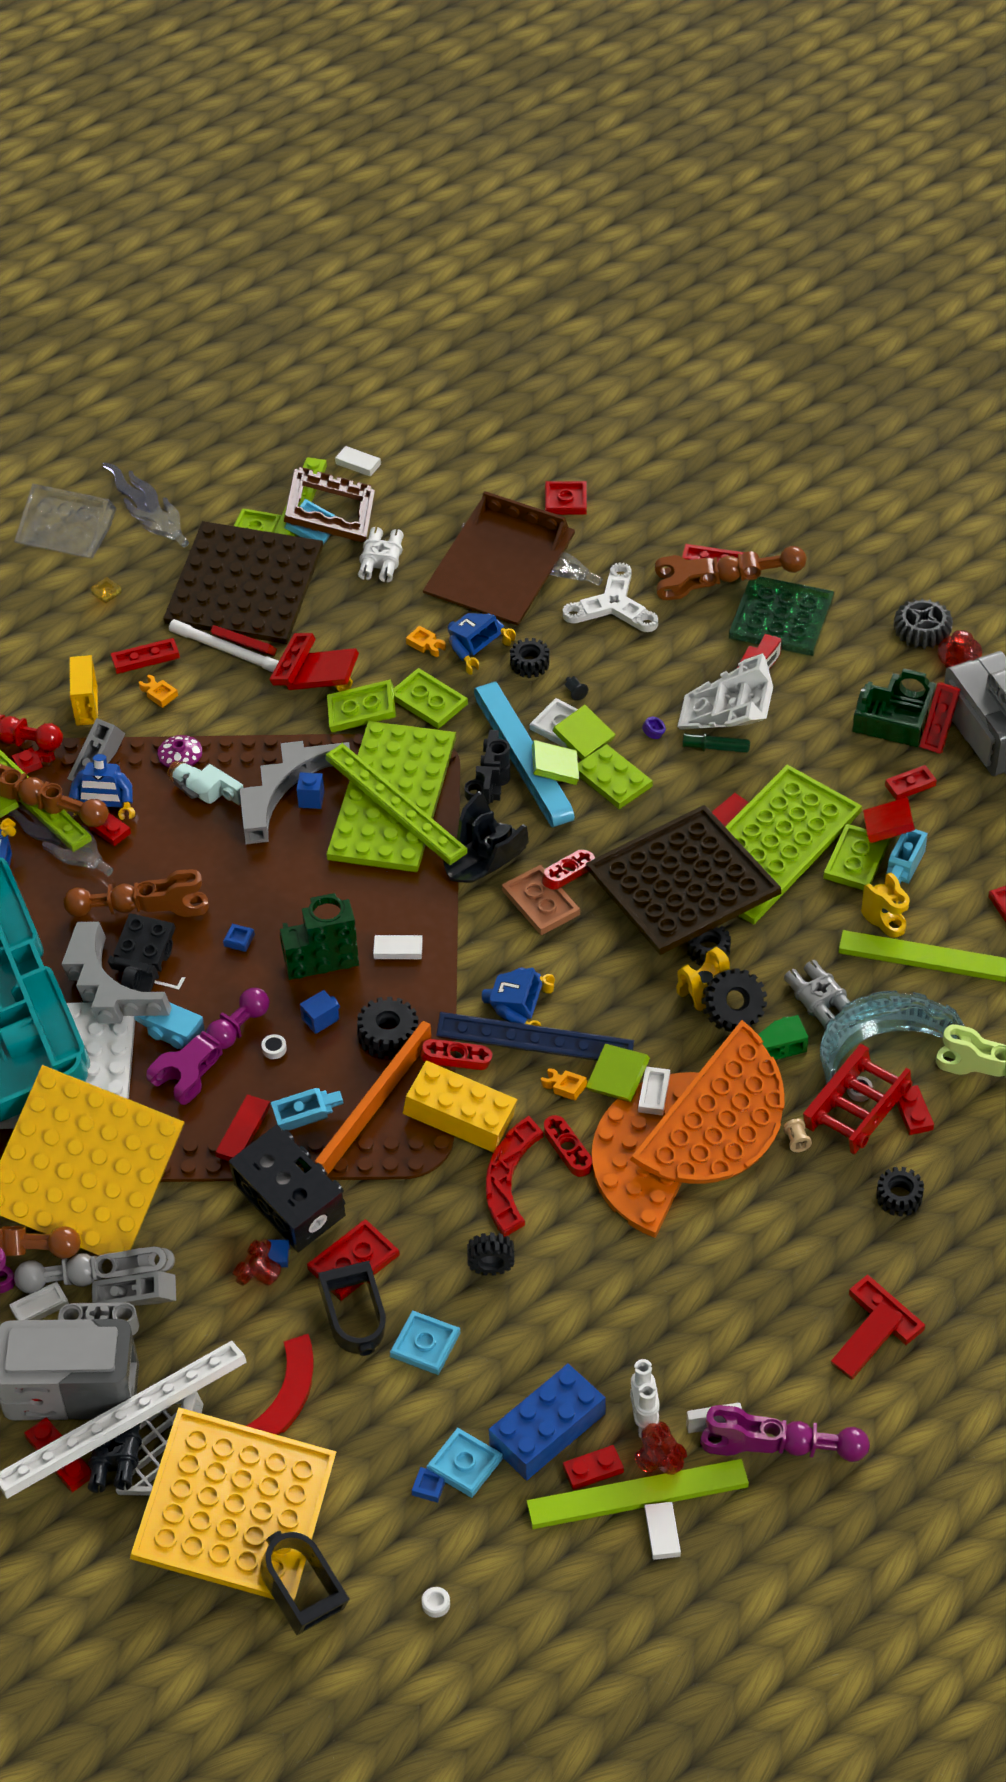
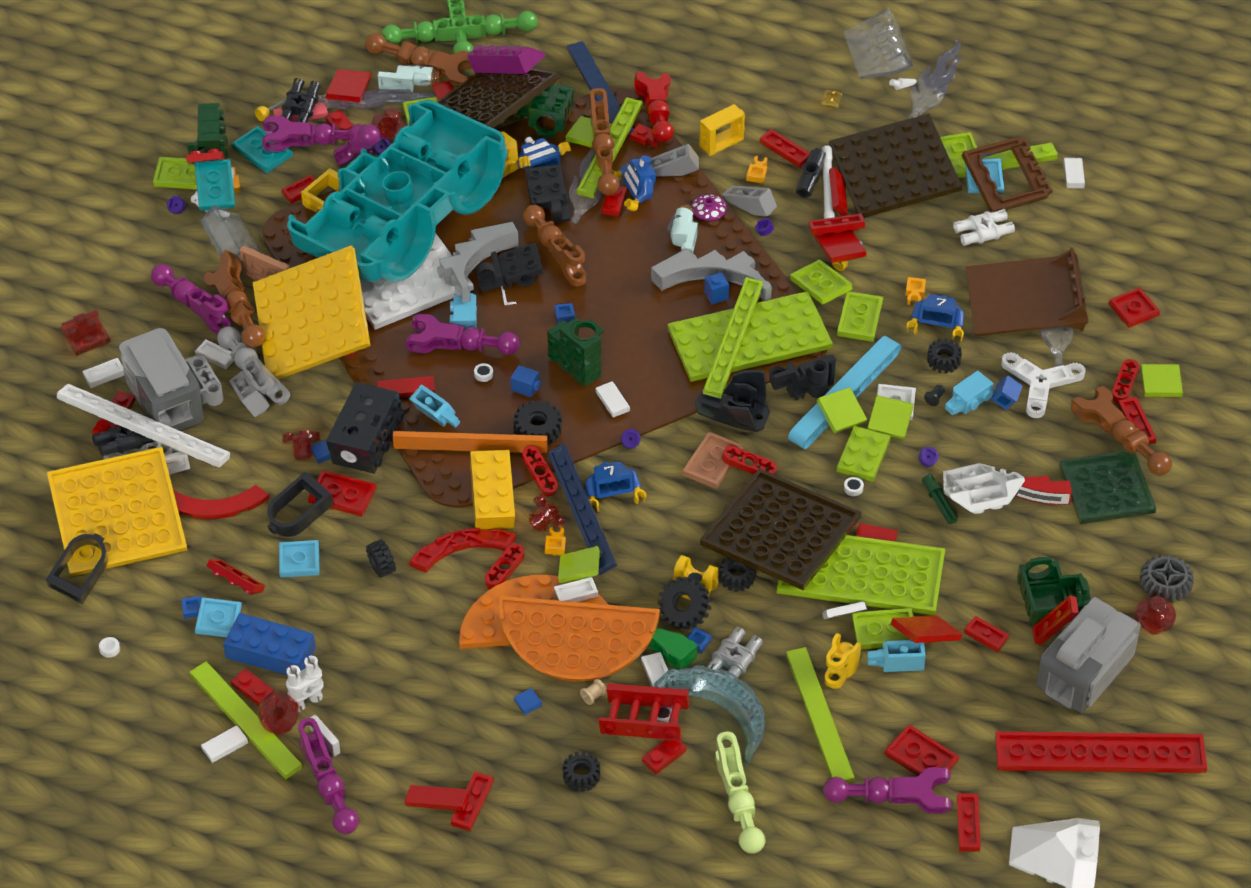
camera: 60 degrees right, 0 degrees up
(51, 874) = (548, 190): none -> black plate
(129, 529) = (902, 83): none -> white bar
(198, 712) = (751, 199): none -> light grey slope
(200, 649) = (811, 173): none -> black piece
(243, 720) = (764, 227): none -> dark purple tile
(415, 1417) = (235, 576): none -> red plate
(462, 956) = (630, 438): none -> dark purple tile
(525, 1074) = (545, 514): none -> clear red plate
(595, 659) = (970, 394): none -> medium azure hinge
(615, 631) = (1006, 392): none -> blue brick
(646, 536) = (1126, 388): none -> red beam
(651, 802) = (853, 486): none -> white tile
(672, 520) = (1161, 380): none -> lime tile
(772, 1202) = (527, 701): none -> blue tile
(774, 1013) = (700, 638): none -> blue tile
(800, 1070) = (654, 667): none -> white tile
(816, 878) = (844, 610): none -> white tile

